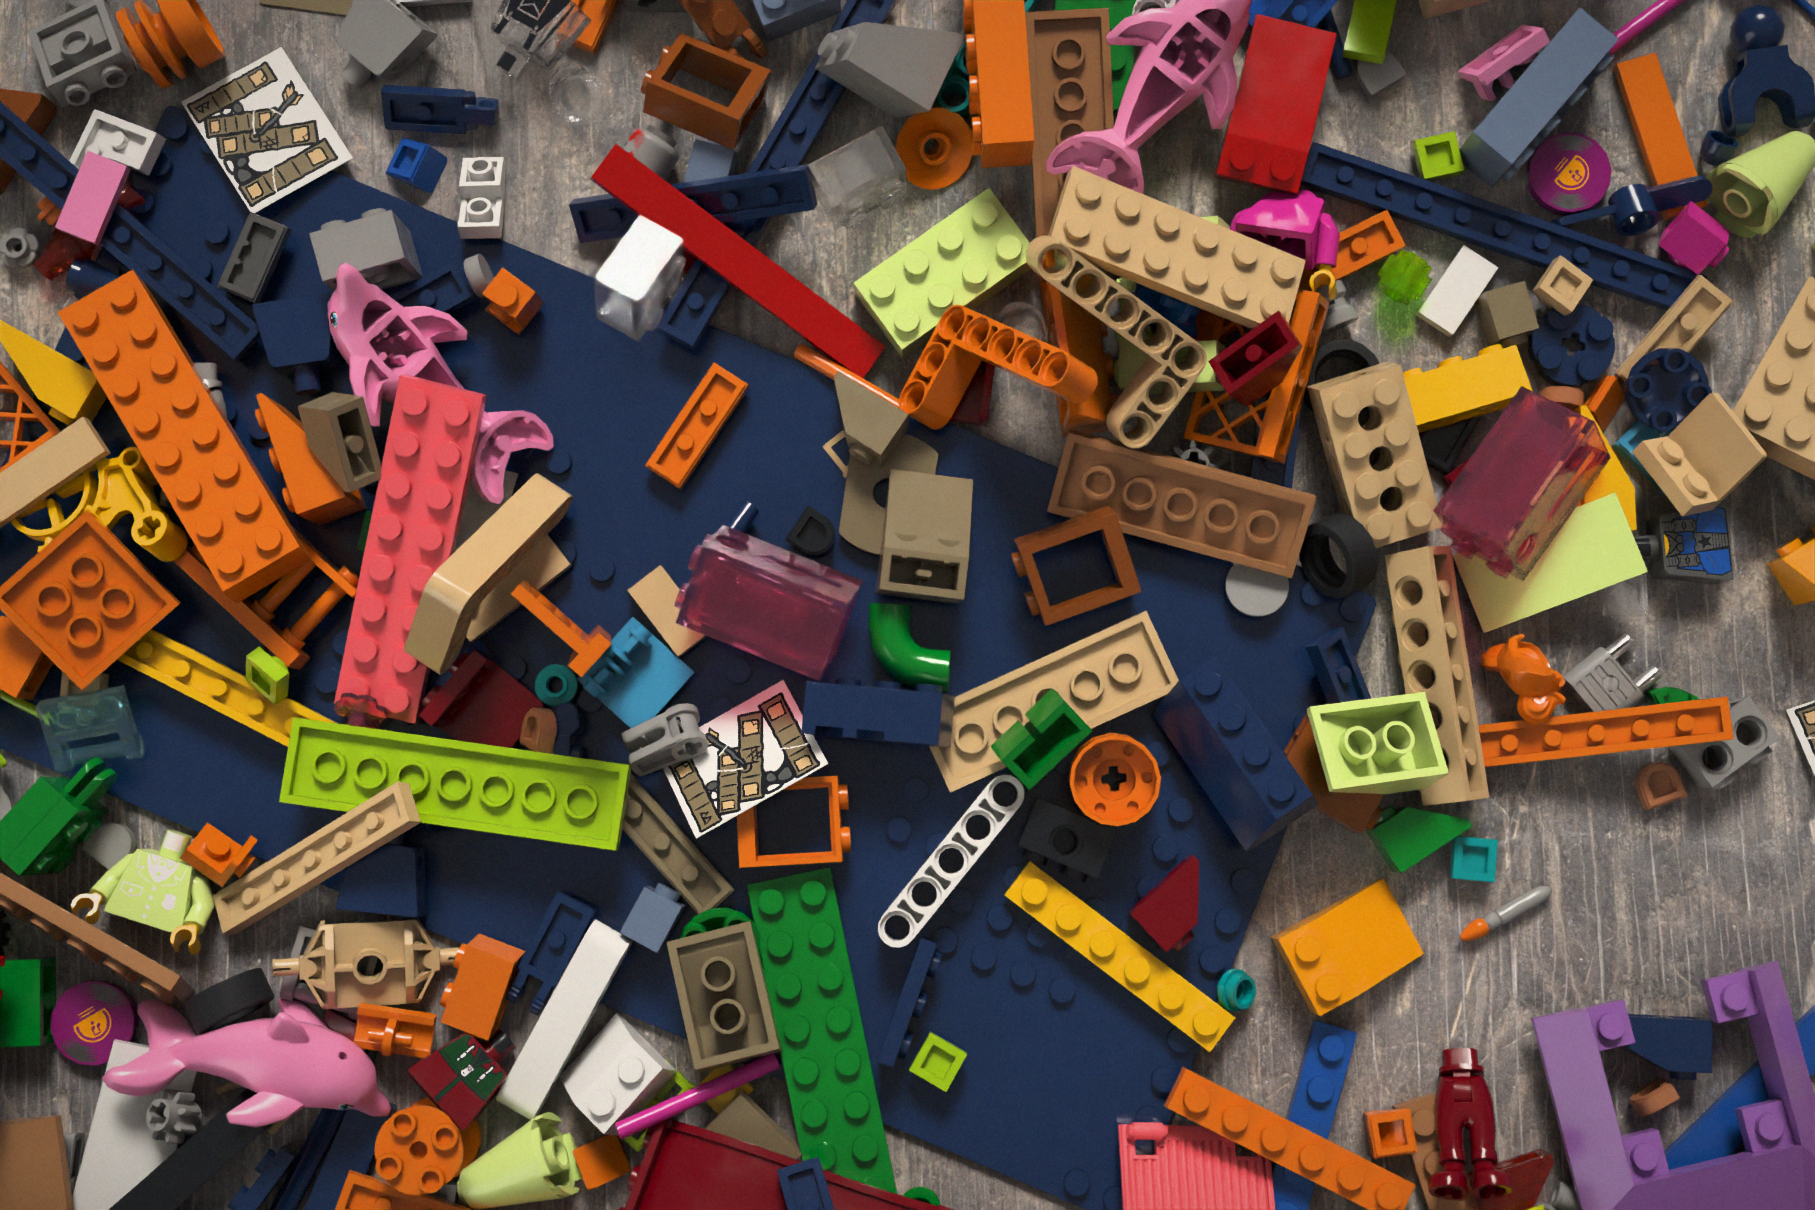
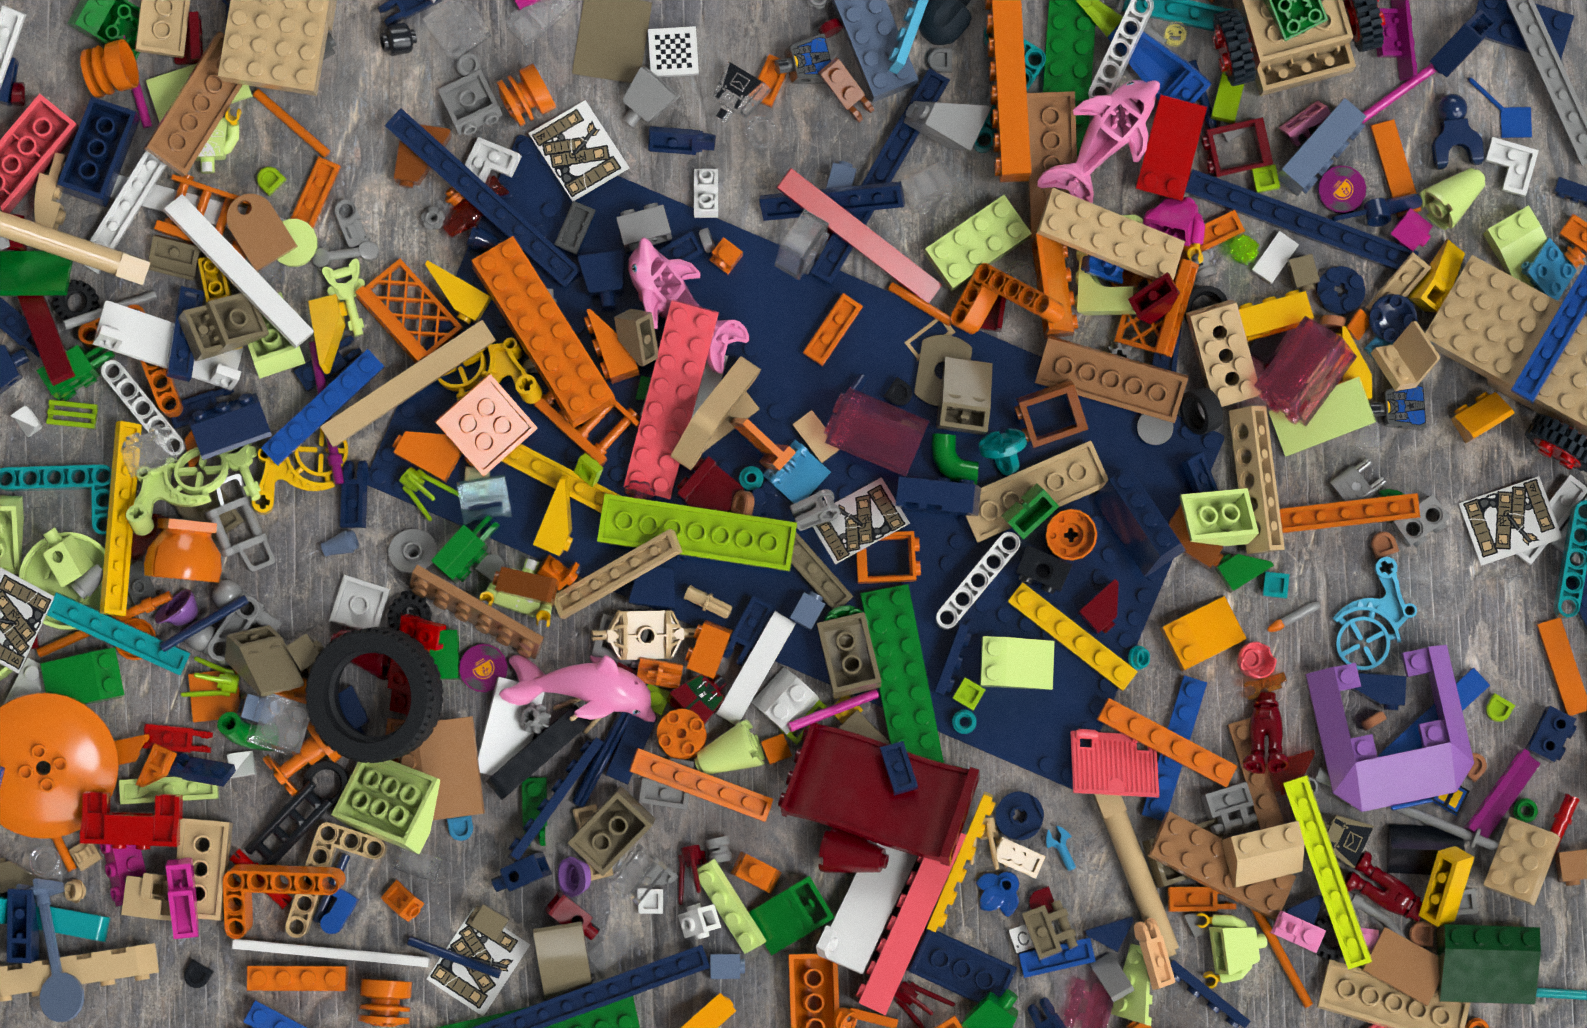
camera: 10 degrees left, 0 degrees up
(92, 198) = (486, 192): bright pink tile -> none
(155, 884) = (526, 585): none -> dark orange slope
(214, 766) = (557, 522): none -> yellow slope
(229, 1000) = (565, 654): black tyre -> none
(393, 1074) = (658, 698): none -> lime plate
(417, 165) = (666, 172): blue slope -> none
(479, 903) = (708, 602): none -> tan axle
(653, 150) = (807, 167): light grey head -> none
(694, 112) = (833, 147): dark orange window -> none
(869, 422) = (932, 329): dark tan slope -> none
(925, 1123) = (956, 721): none -> teal plate
(949, 155) = (980, 172): orange dish -> none
(994, 628) = (1004, 449): none -> teal tile
(1021, 1005) = (1016, 663): none -> yellowish green slope
(1130, 324) = (1083, 278): tan beam -> none
(1389, 1132) = (1224, 738): orange slope -> none
(1429, 93) = (1261, 143): none -> dark red window
(1444, 994) = (1256, 660): none -> coral hair
(1470, 1032) = (1271, 683): none -> clear orange plate
(1528, 676) = (1308, 480): orange hair -> none
(1562, 286) = (1334, 256): tan tile -> none
(1676, 895) = (1389, 607): none -> medium azure piece
(1717, 147) = (1428, 176): dark blue hinge -> none
(1746, 328) = (1439, 280): none -> yellow slope

